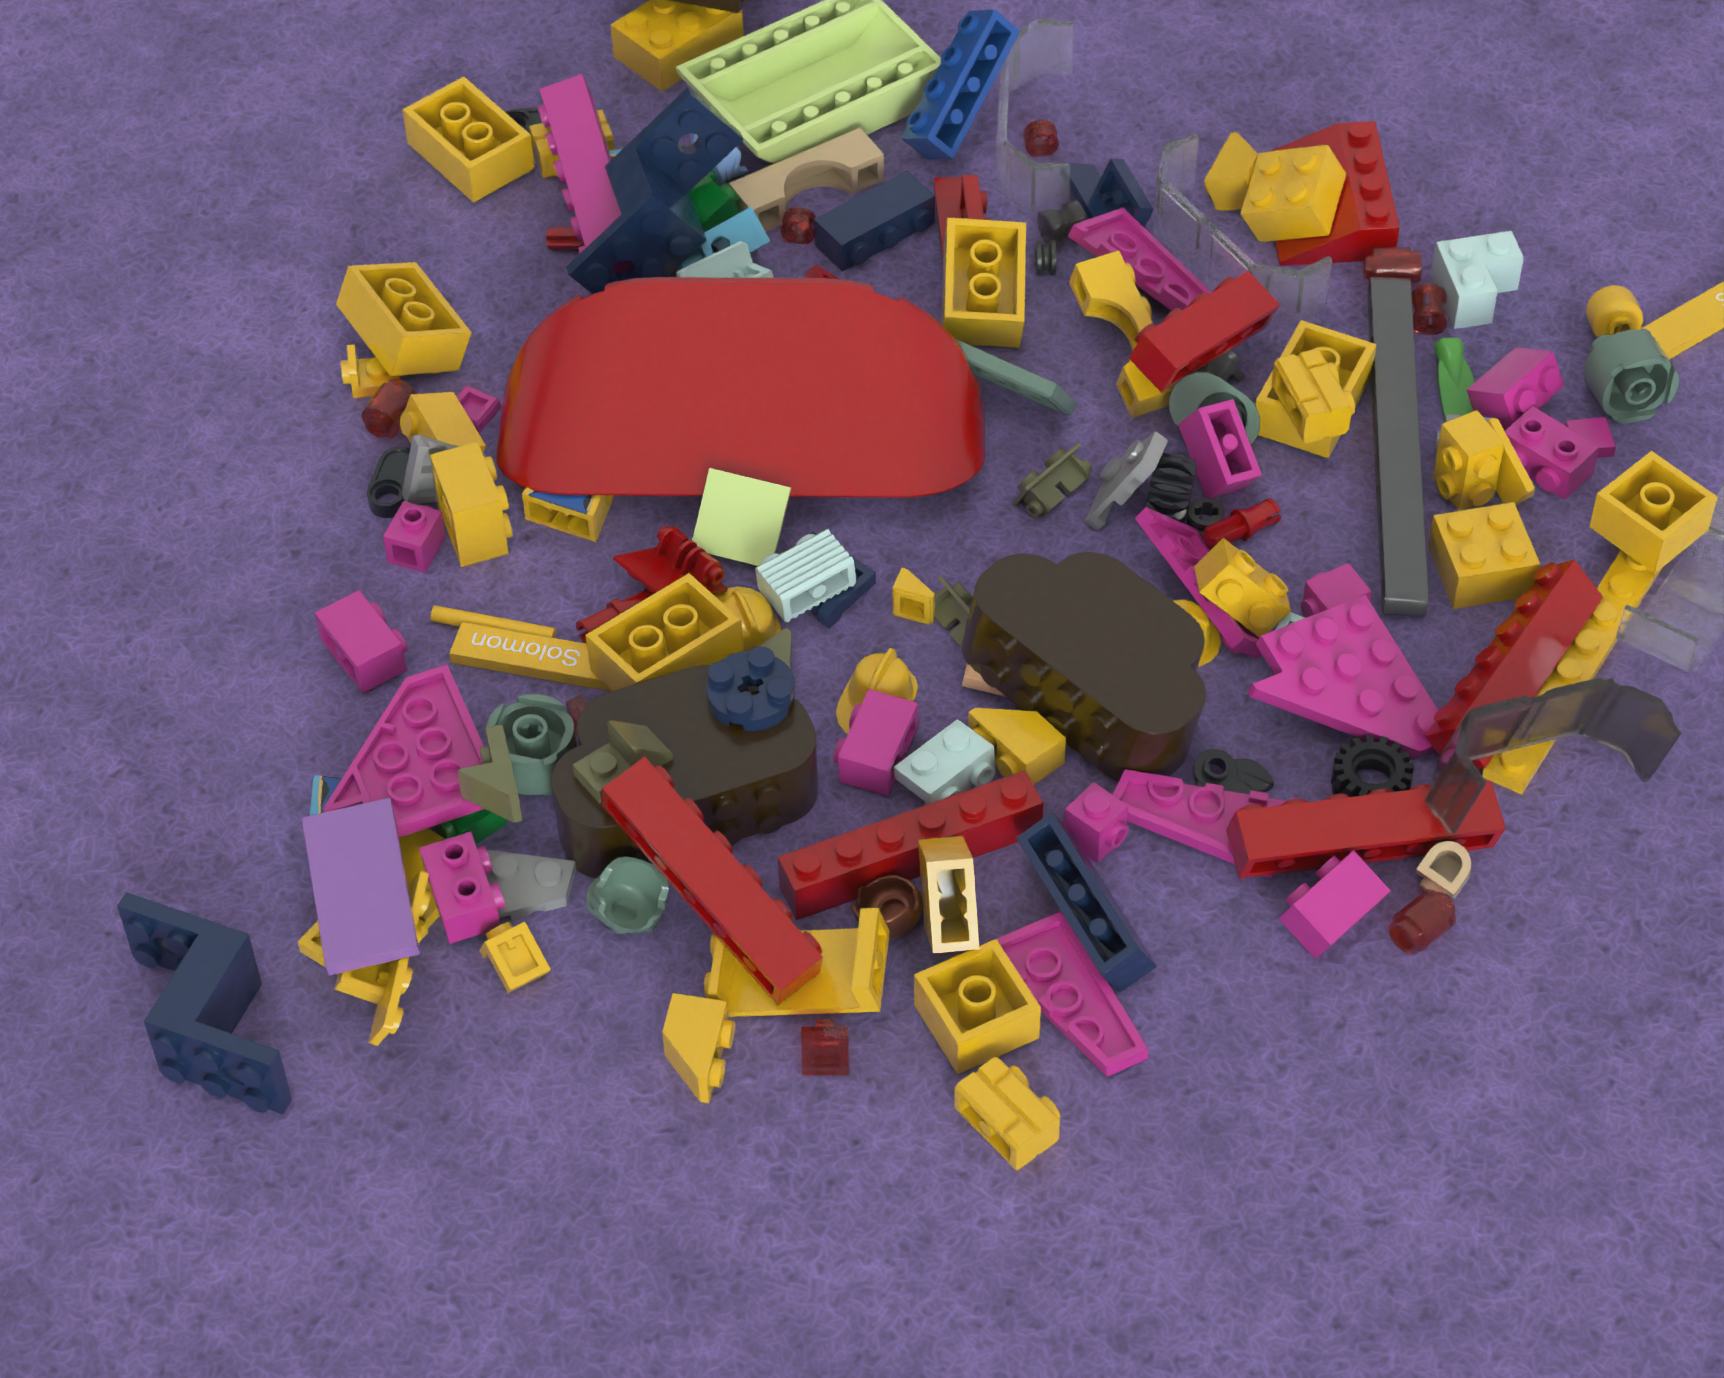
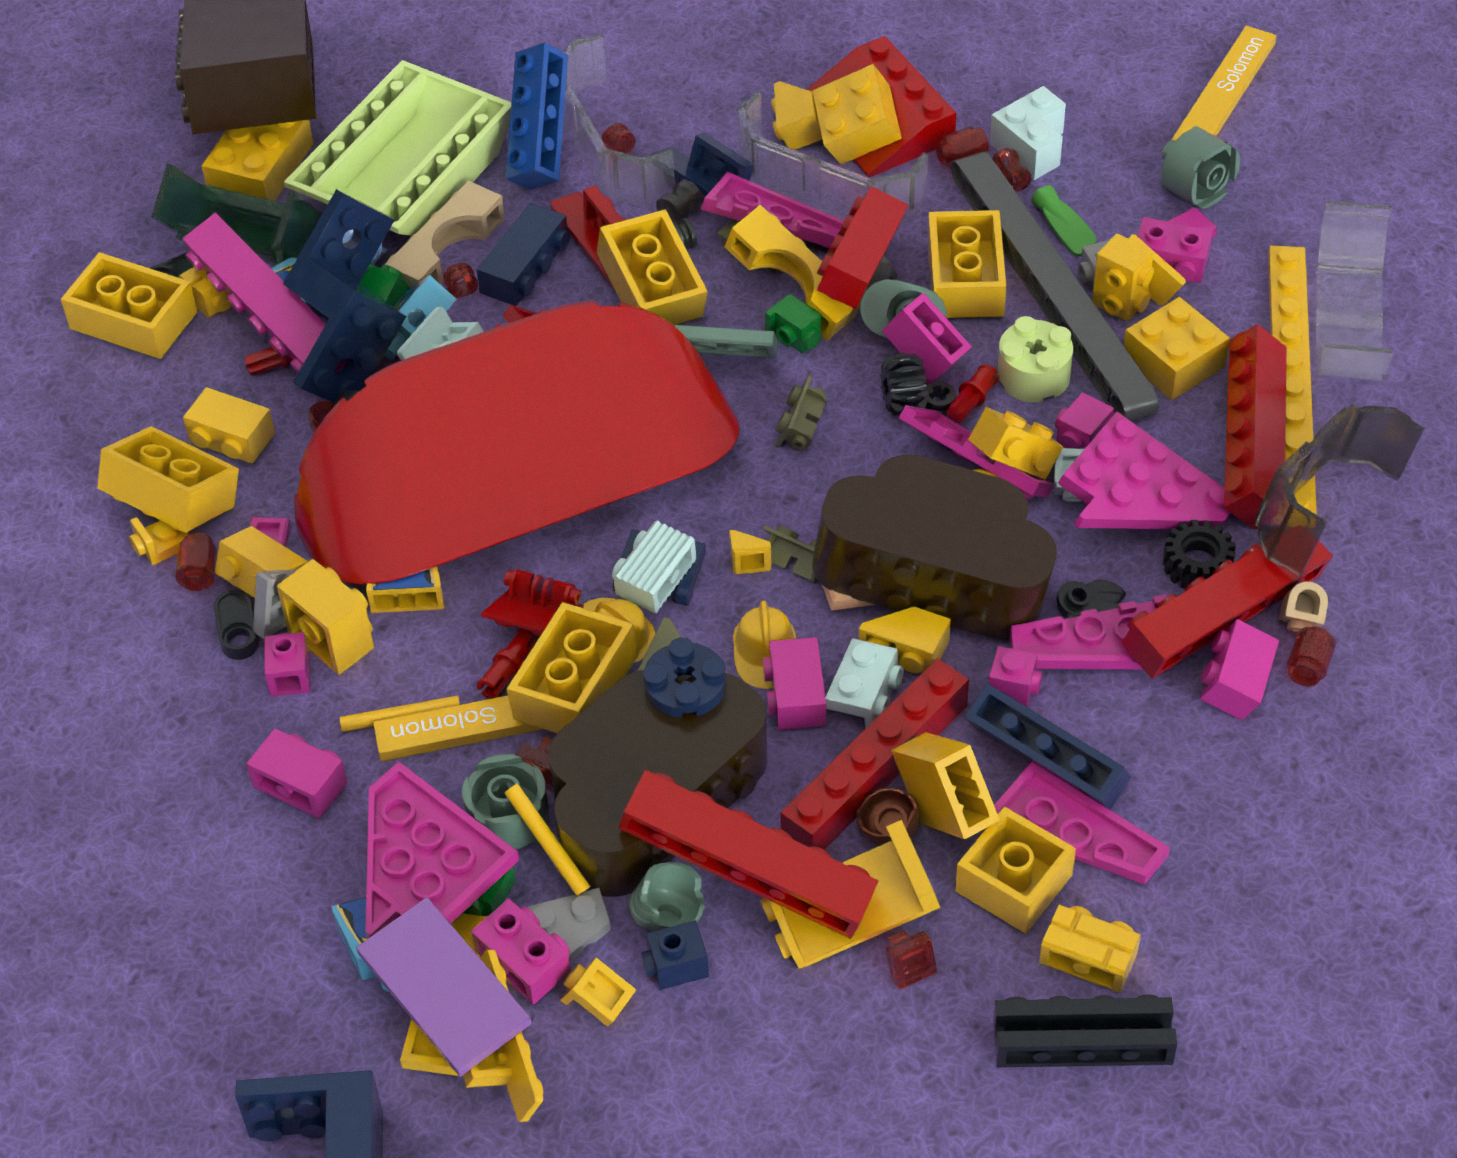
camera: 25 degrees left, 0 degrees up
(492, 289) = (229, 425): none -> yellow brick
(492, 782) = (512, 843): olive slope -> none
(542, 793) = (547, 839): none -> yellow bar
(605, 952) = (675, 955): none -> dark blue brick
(617, 86) = (263, 224): none -> windscreen
(626, 746) = (611, 784): olive slope -> none
(694, 1041) = (798, 999): yellow slope -> none
(740, 517) = (568, 540): yellowish green tile -> none
(950, 1189) = (1084, 1031): none -> black brick
(1100, 387) = (794, 323): none -> green brick
(1124, 476) = (862, 388): light grey wing -> none
(1313, 395) = (982, 267): yellow brick -> none
(1325, 513) = (1035, 359): none -> yellowish green brick
(1516, 384) = (1118, 205): dark pink brick -> none
(1613, 311) = (1154, 124): yellow head -> none
(1653, 511) = (1289, 265): yellow brick -> none

